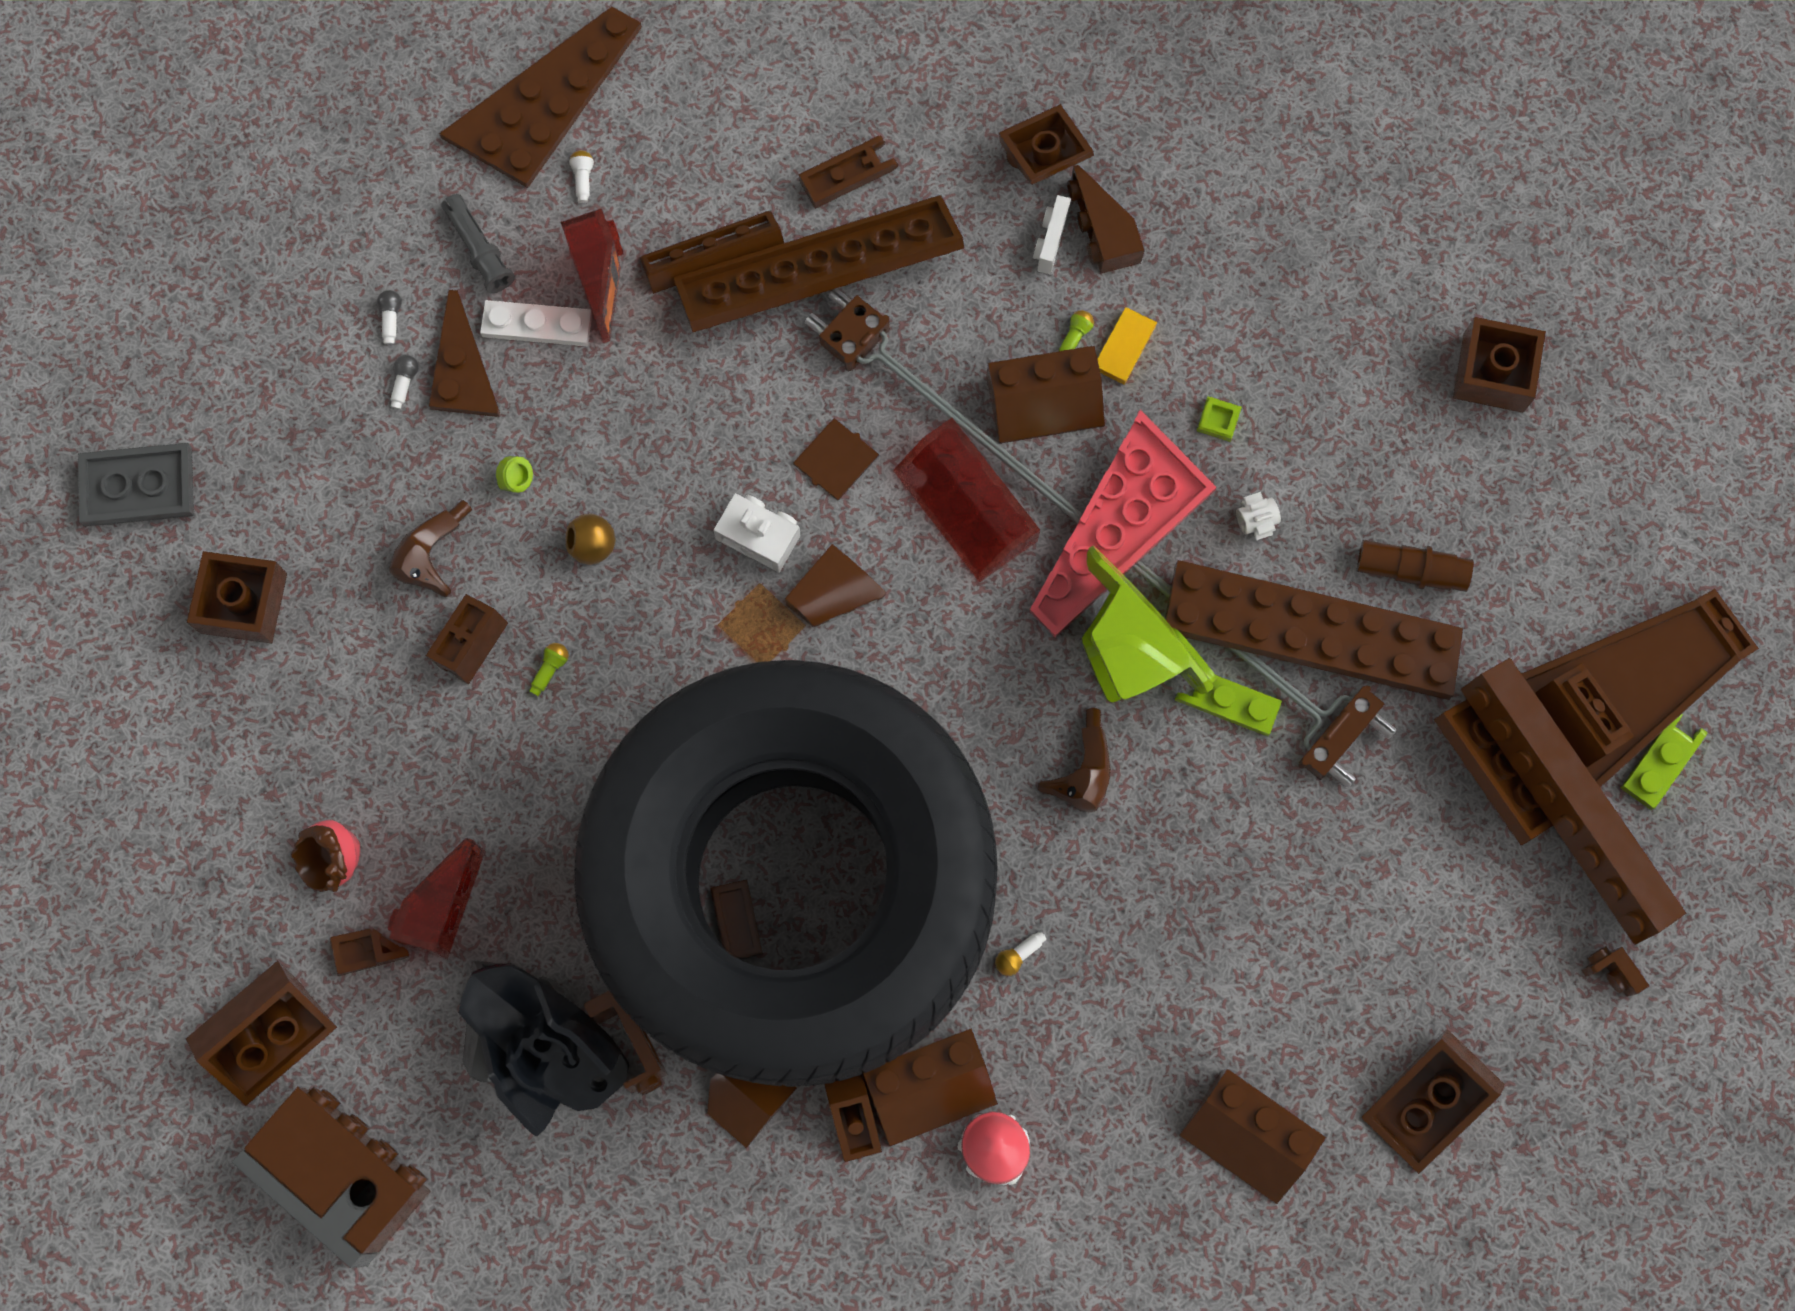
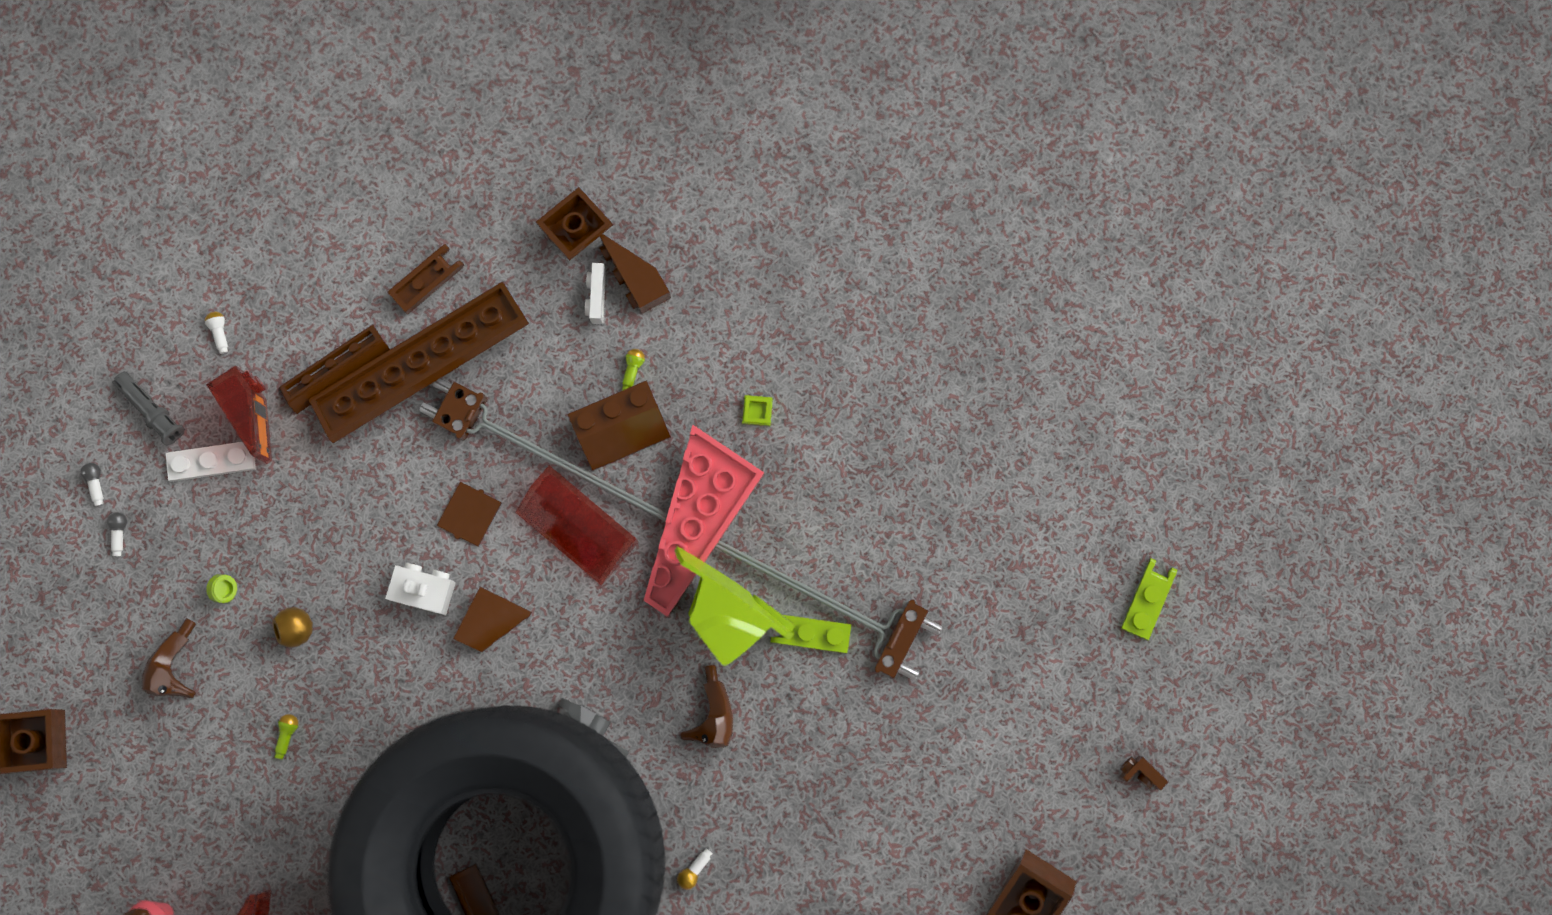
camera: 10 degrees left, 5 degrees up
(459, 374) = (160, 517): reddish brown wing -> none
(467, 638) = (216, 729): reddish brown hinge -> none
(535, 110) = (166, 289): reddish brown wing -> none
(761, 625) = (441, 661): clear orange piece -> none
(1125, 345) = (672, 369): yellow tile -> none
(1258, 516) = (802, 483): white gear -> none
(1314, 630) = (863, 563): reddish brown plate -> none
(1415, 565) = (930, 493): reddish brown piece -> none
(1499, 364) = (962, 318): reddish brown brick -> none
(1573, 802) = (1084, 654): reddish brown brick -> none
(1607, 700) = (1072, 590): reddish brown wing -> none

